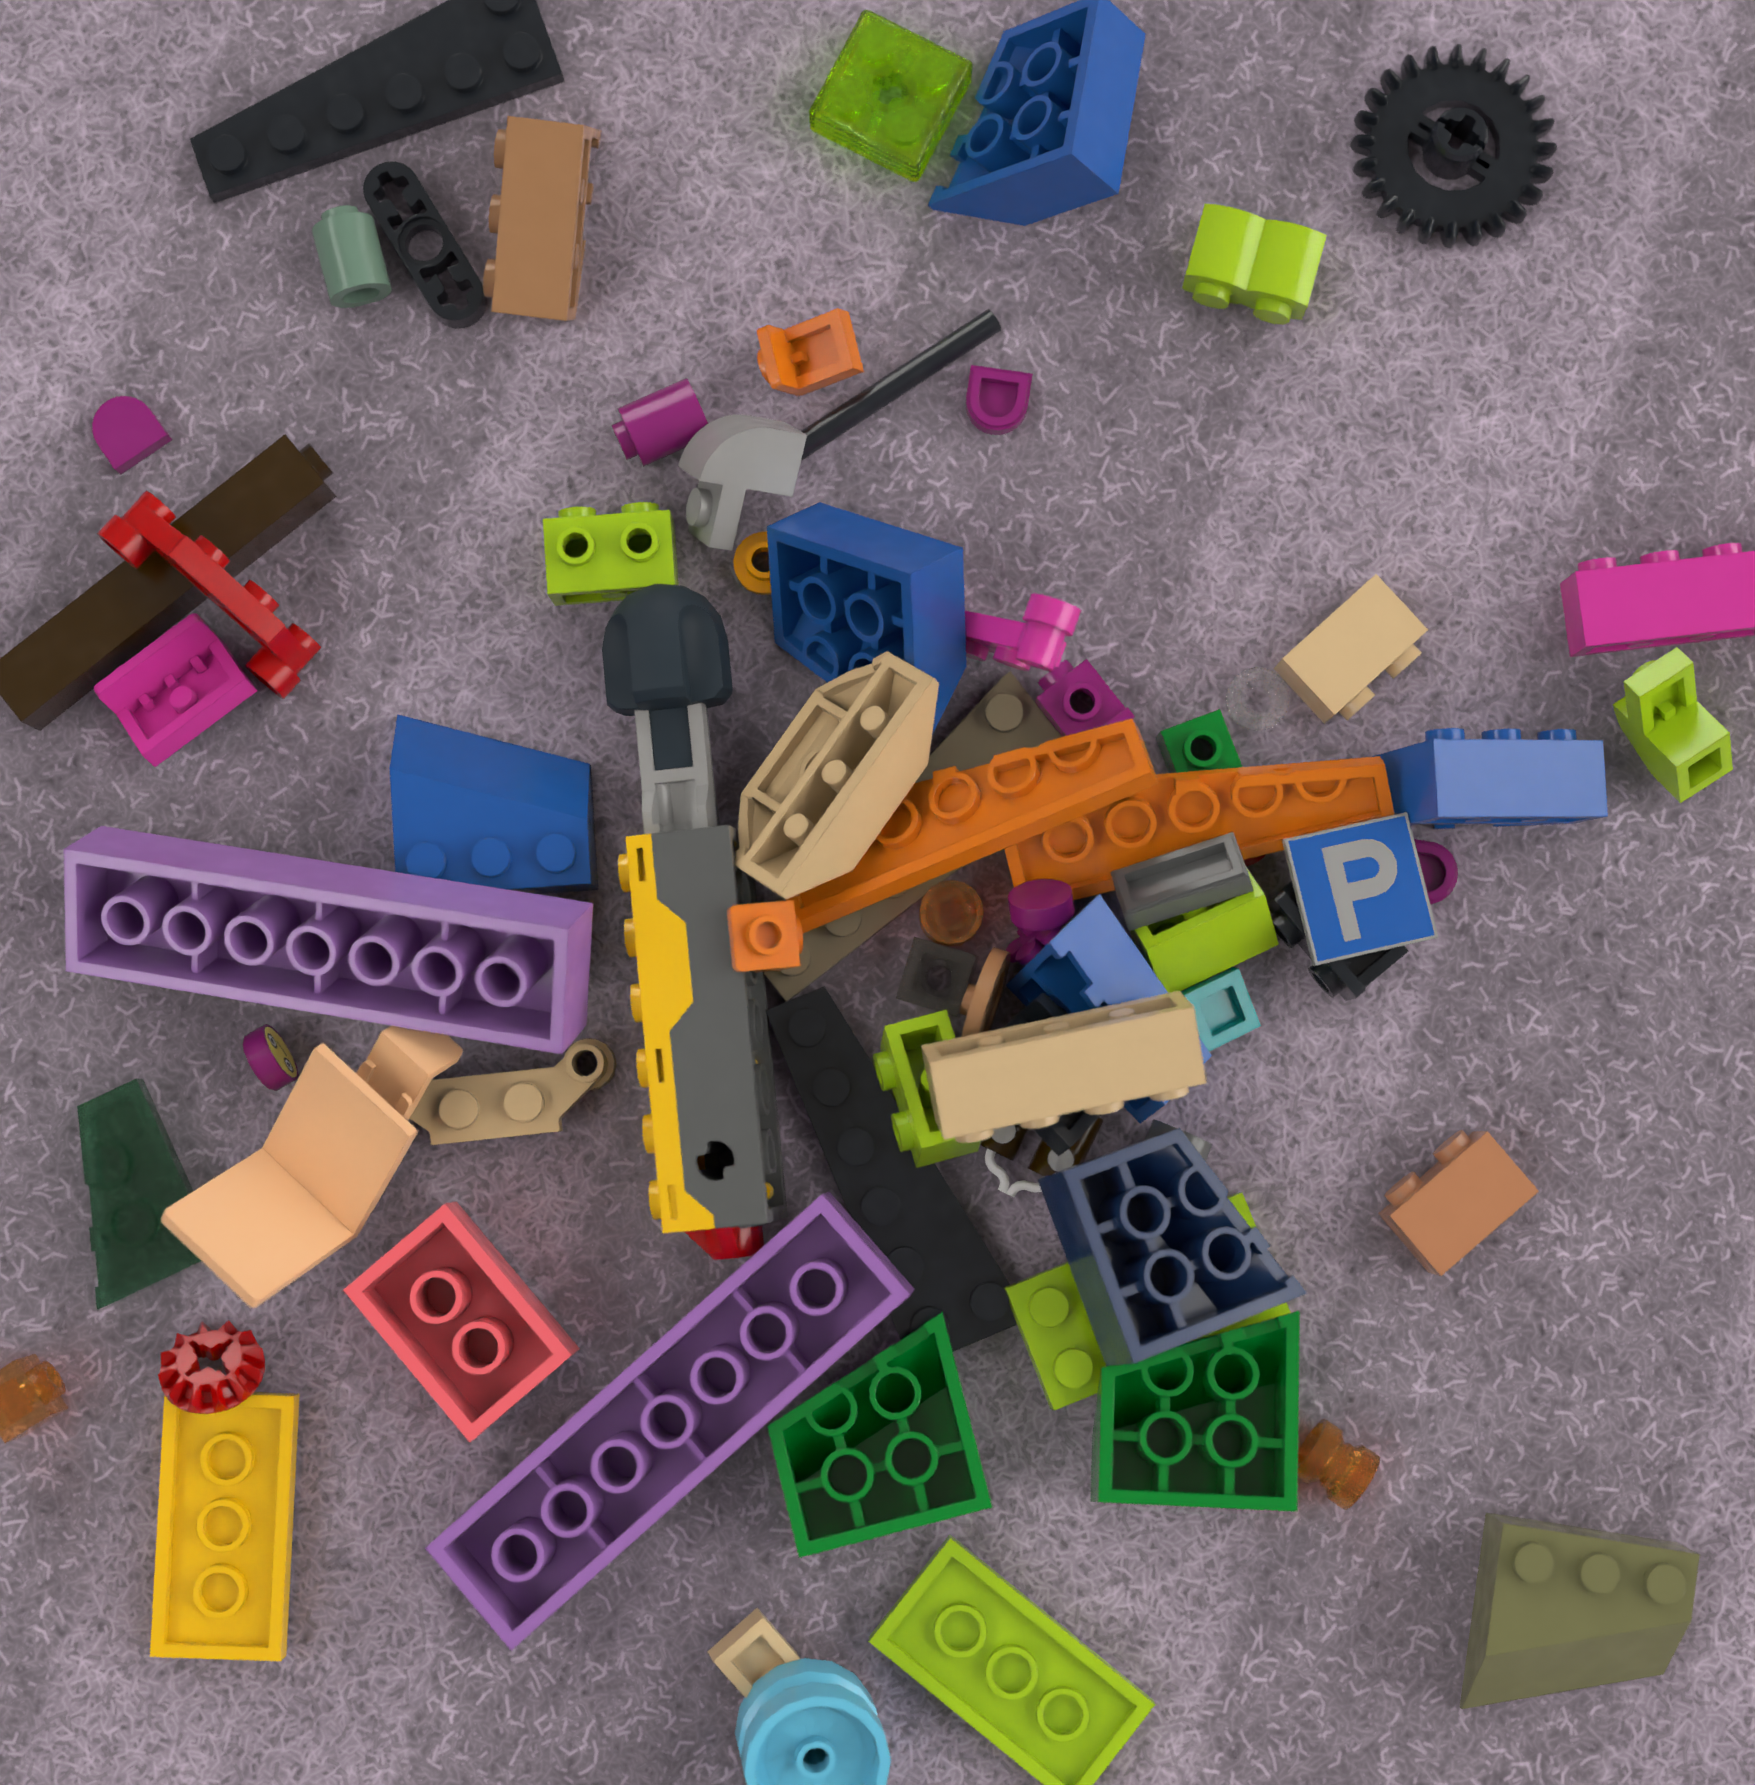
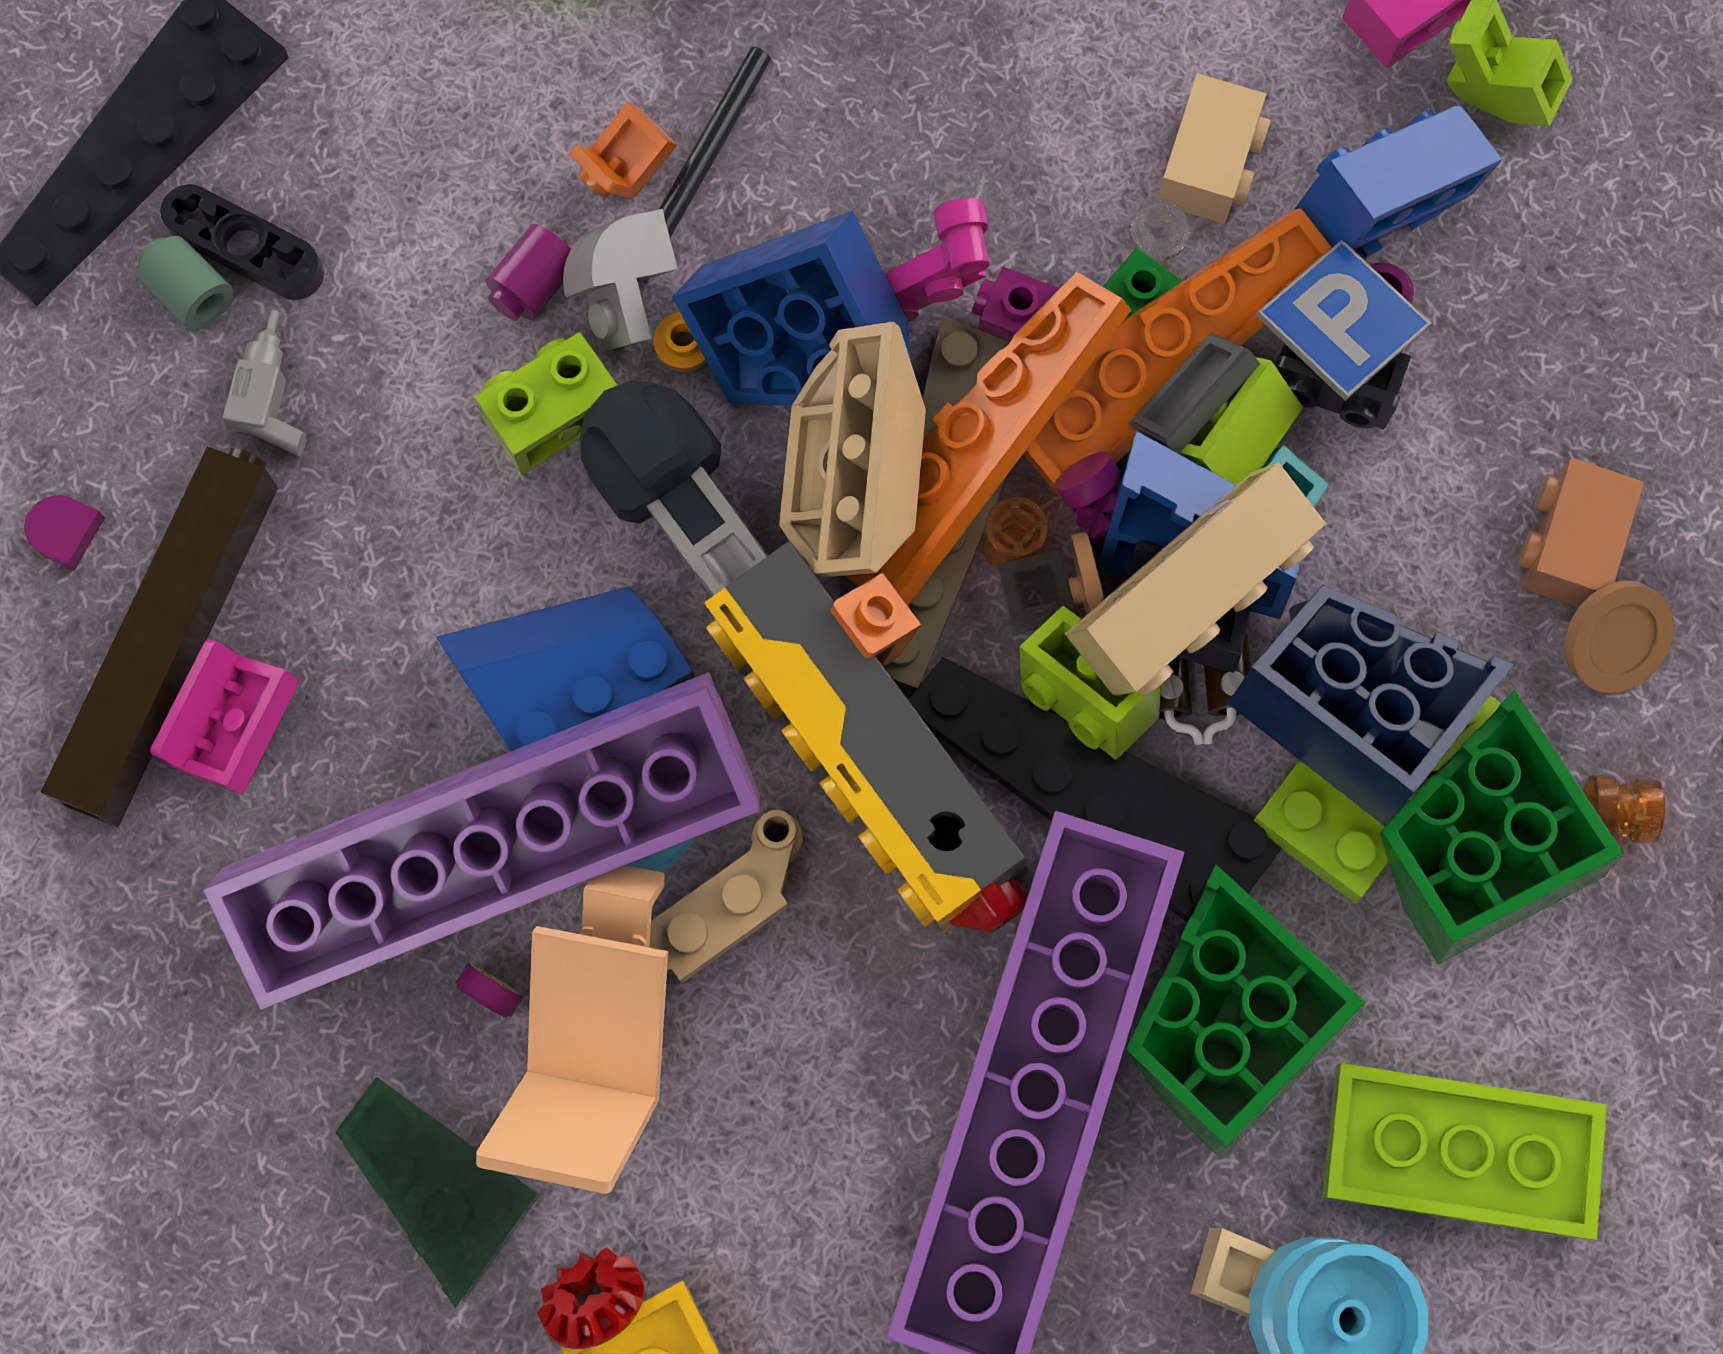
camera: 30 degrees left, 10 degrees down
(148, 529) = (201, 589): red plate -> none
(364, 398) = (258, 393): none -> light grey piece
(461, 1319) = (796, 1117): coral brick -> none
(539, 217) = (330, 160): medium nougat wedge -> none
(997, 399) = (799, 113): magenta tile -> none
(1429, 1313) = (1619, 636): none -> medium nougat piece

